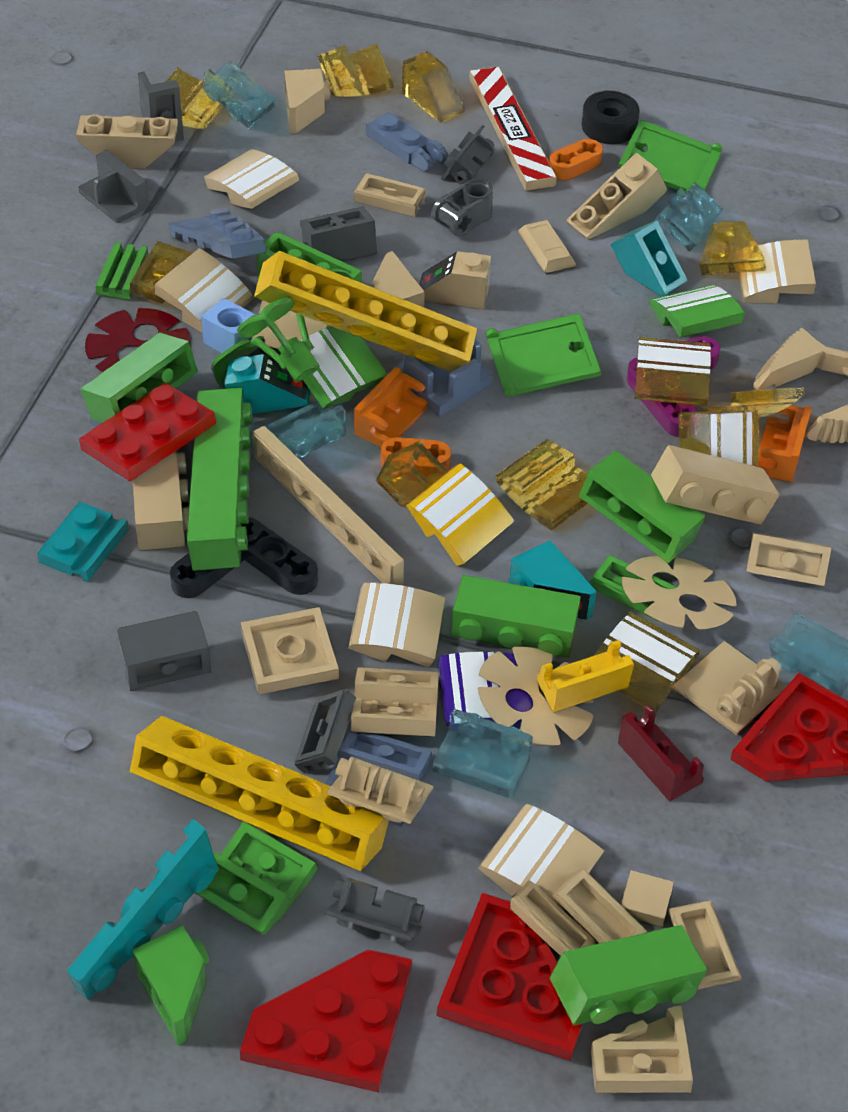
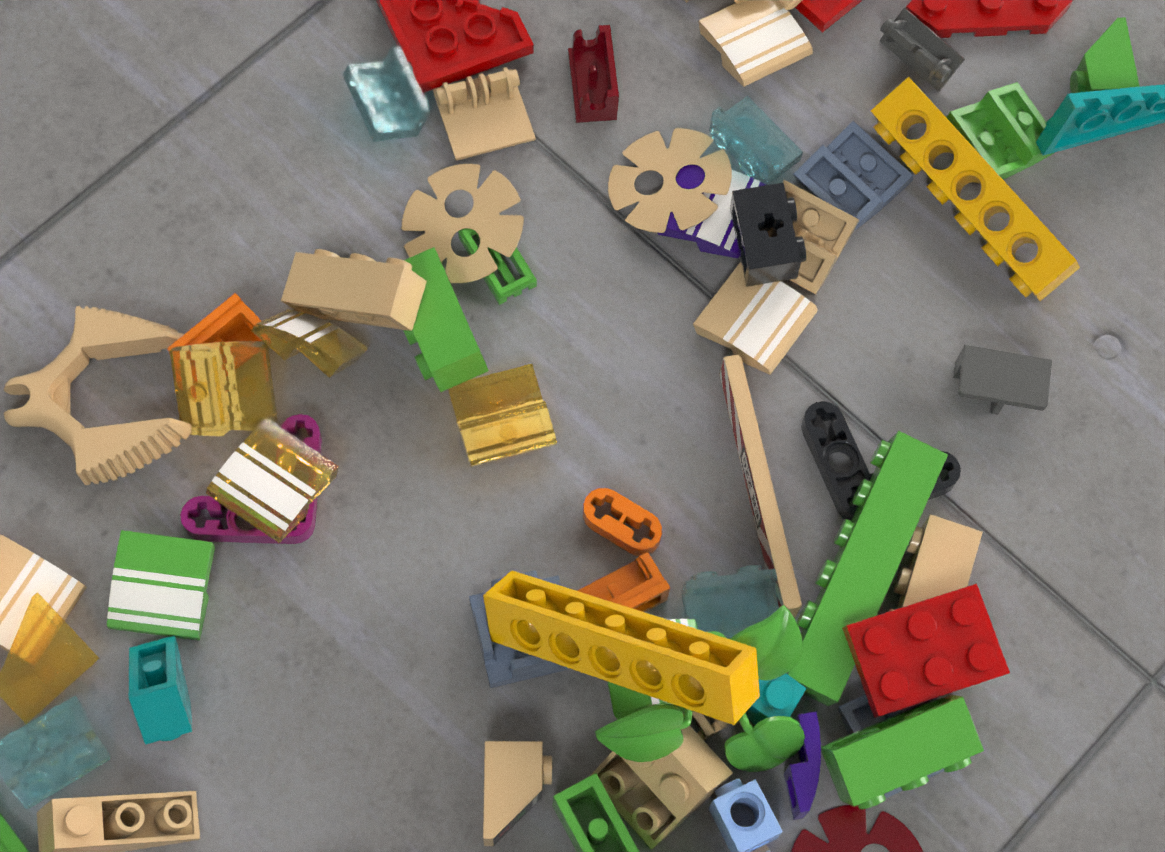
camera: 155 degrees left, 20 degrees up
(82, 541) = (1030, 576): teal plate -> none
(204, 354) = (803, 777): none -> dark purple slope
(289, 650) = (876, 333): tan plate -> none
(325, 730) = (879, 225): dark grey tile -> none
(379, 789) = (870, 129): tan hinge -> none
(409, 473) = (643, 469): clear yellow slope -> none
(424, 655) = (755, 213): none -> black brick
(458, 280) = (423, 771): tan slope -> none
(460, 513) = (626, 405): yellow slope -> none
(515, 615) = (640, 264): bright green brick -> none
(540, 355) = (397, 606): bright green container -> none
(546, 246) = (258, 799): tan tile -> none
(550, 570) = (584, 287): teal slope -> none
(586, 678) = (622, 156): yellow hinge -> none
(657, 659) = (548, 170): slope -> none
(788, 559) = (321, 213): tan panel -> none

